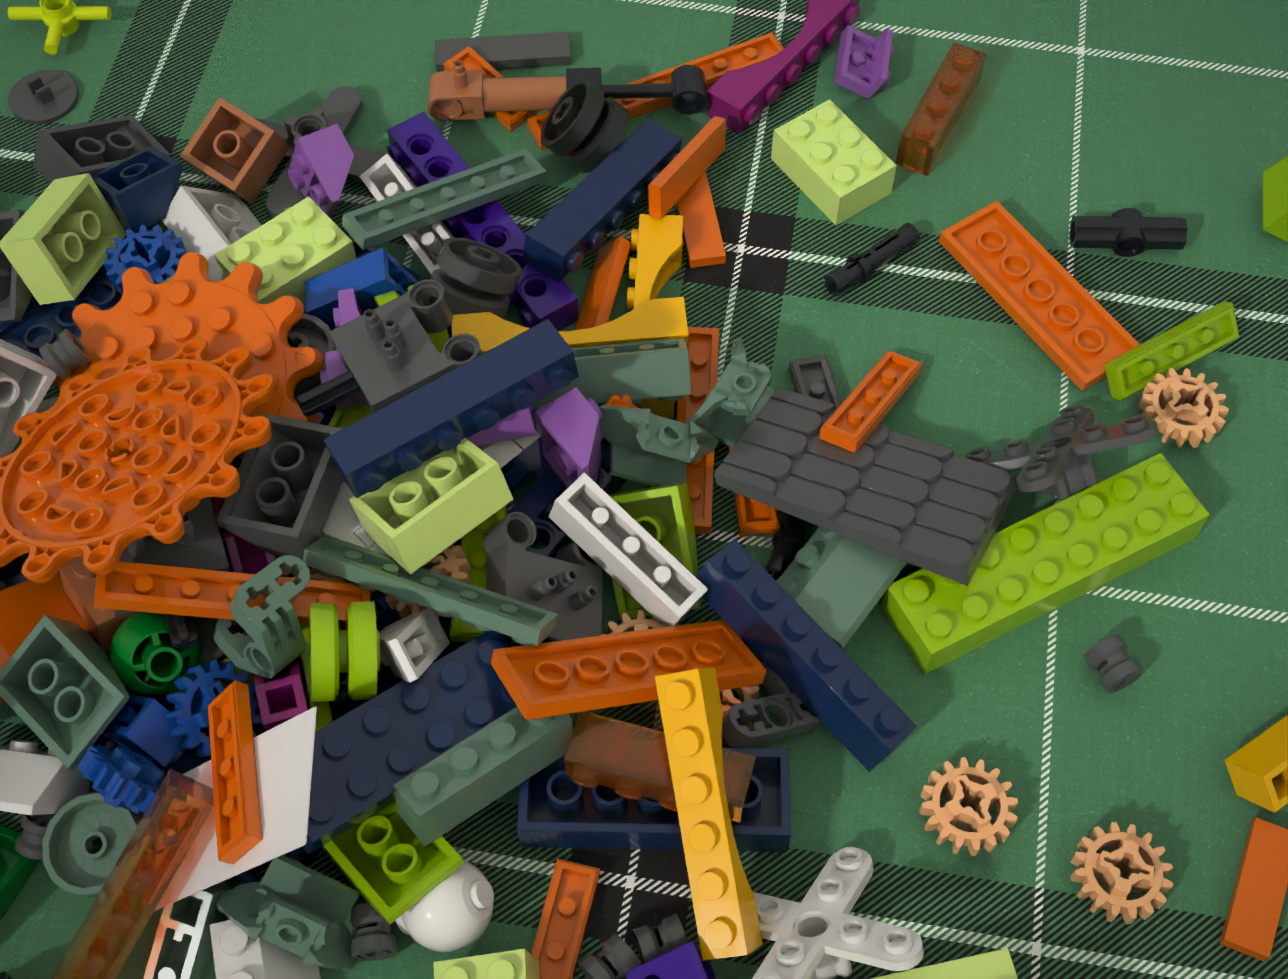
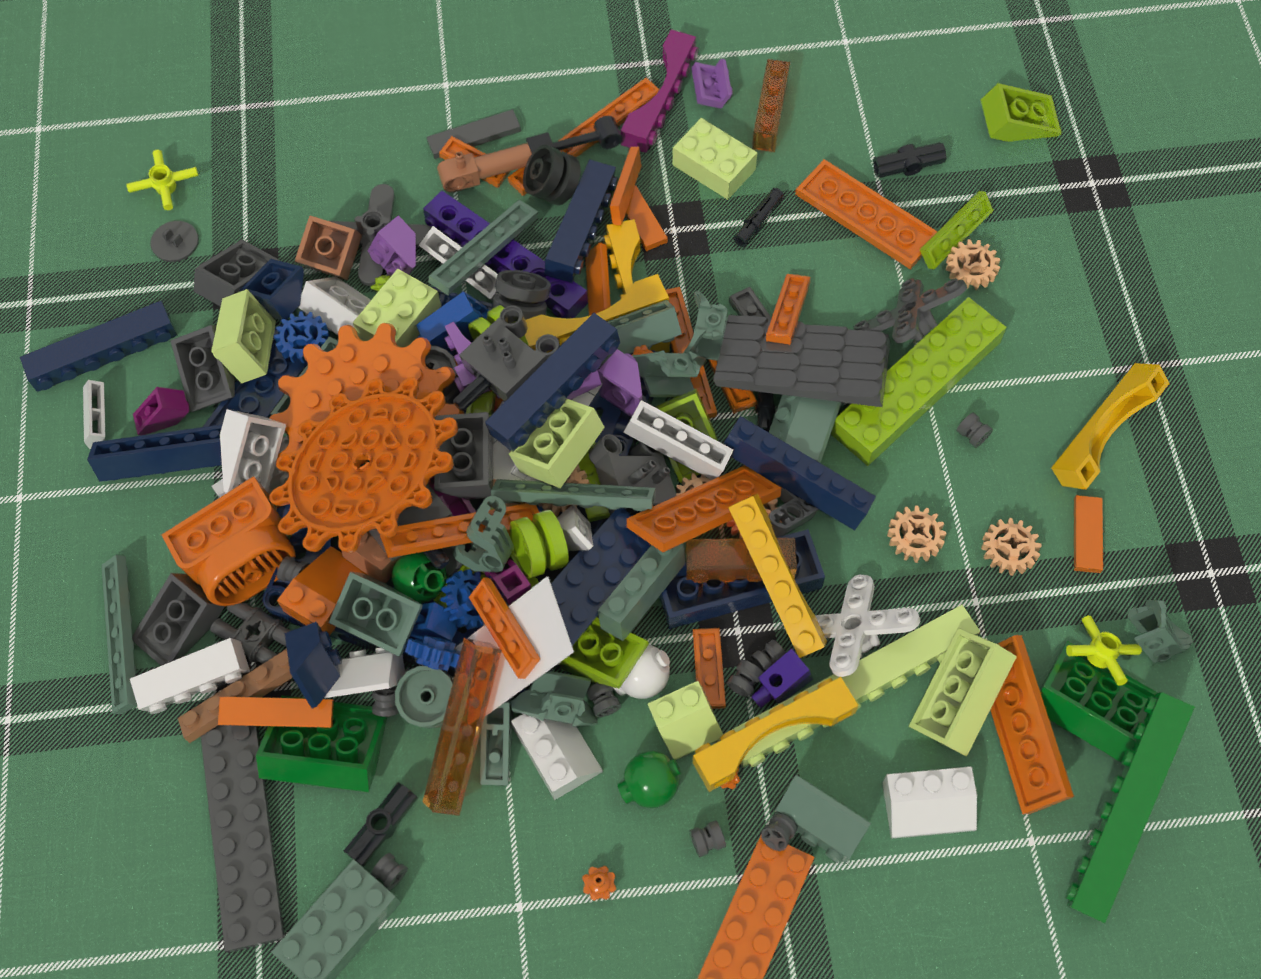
camera: 15 degrees left, 5 degrees up
(65, 354) = (287, 411): dark grey wheel -> none

